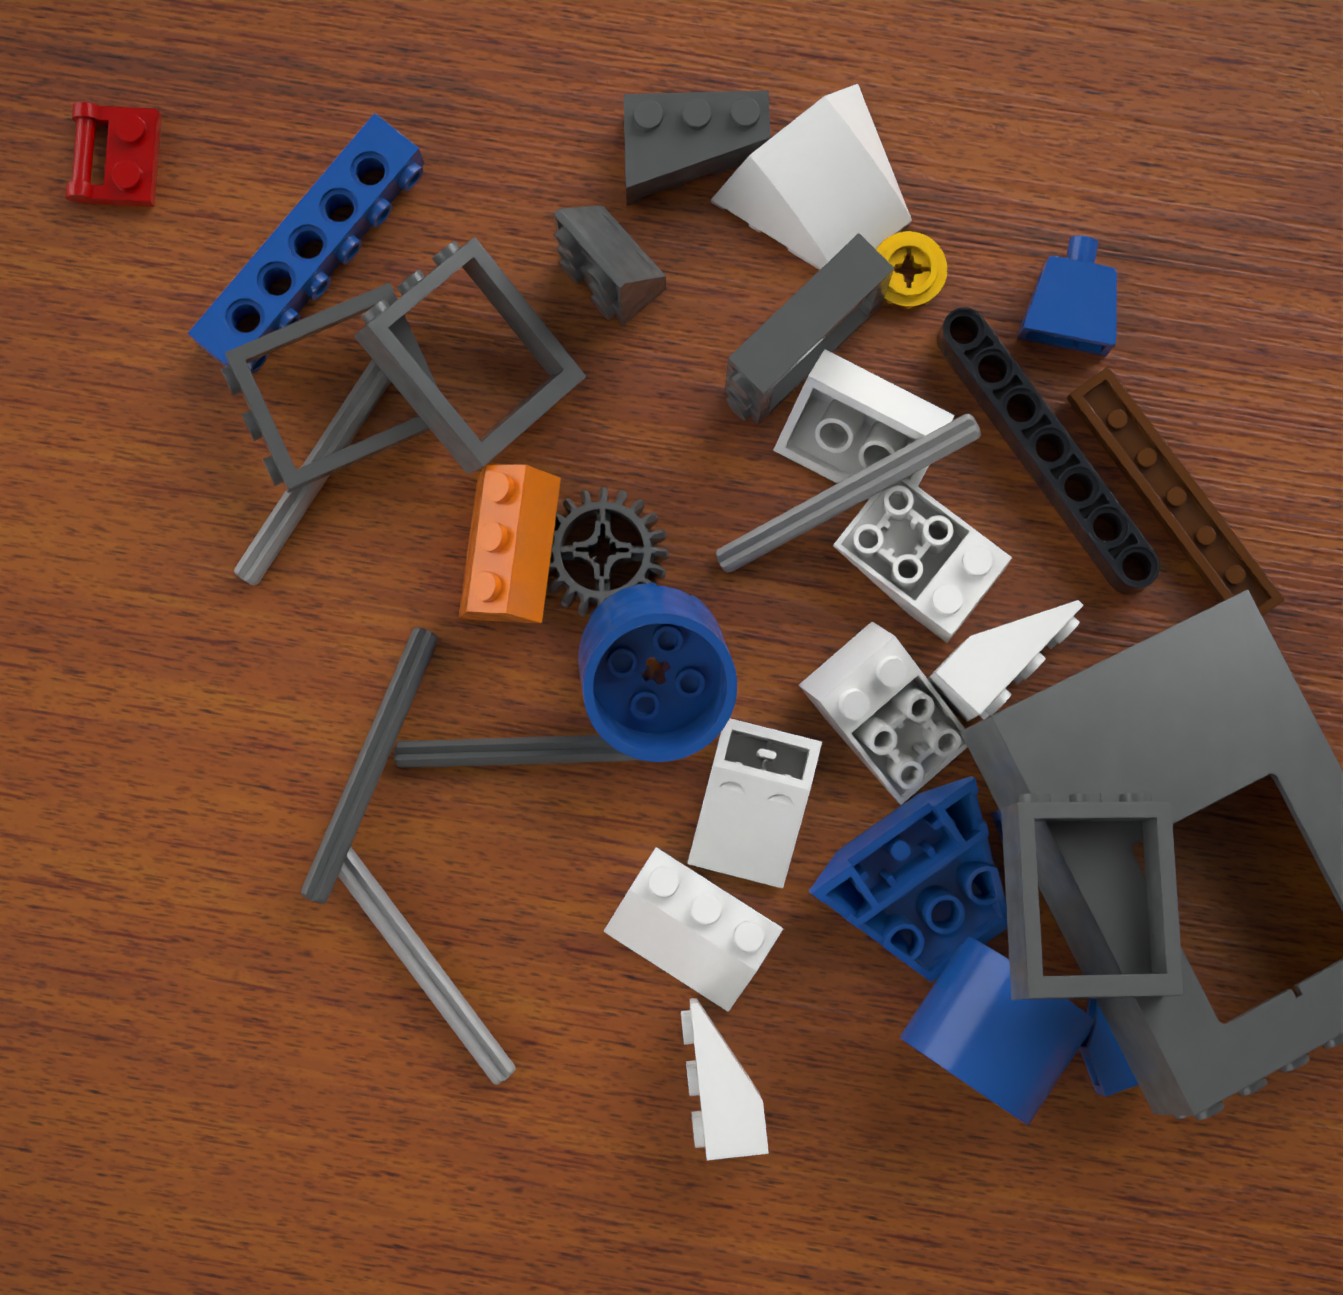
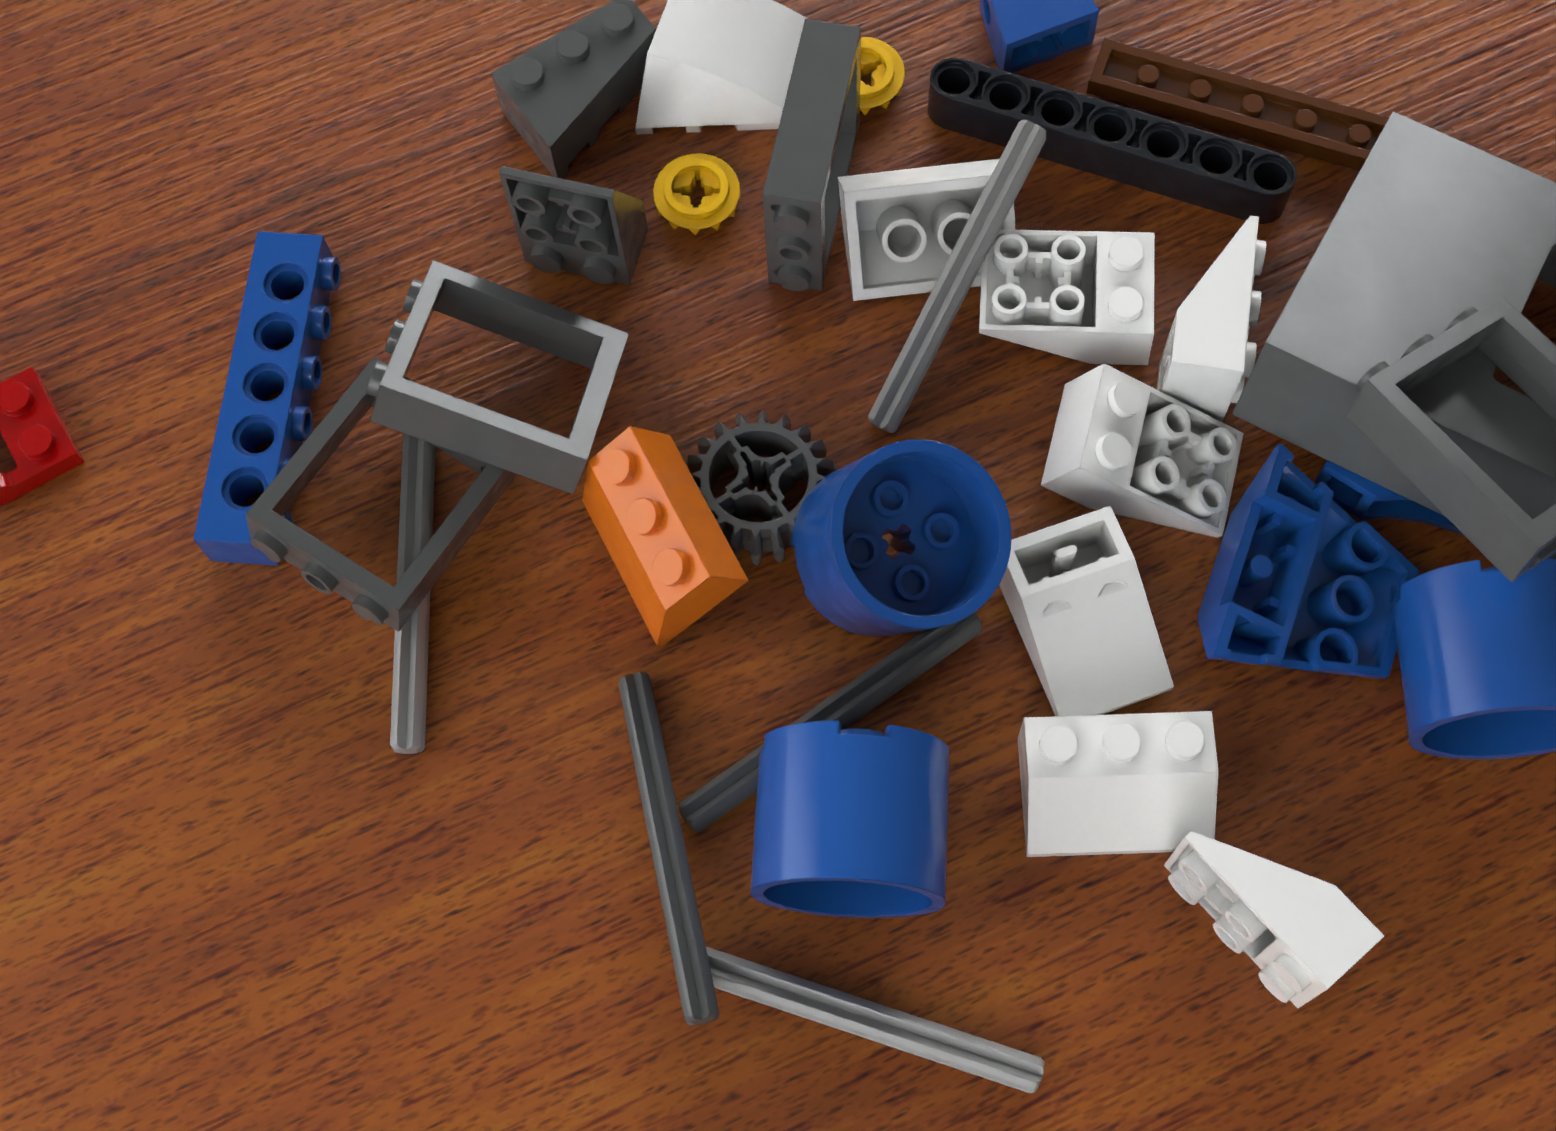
camera: 30 degrees left, 15 degrees down
(487, 843) = (851, 821): none -> blue brick
(714, 265) = (677, 182): none -> yellow gear

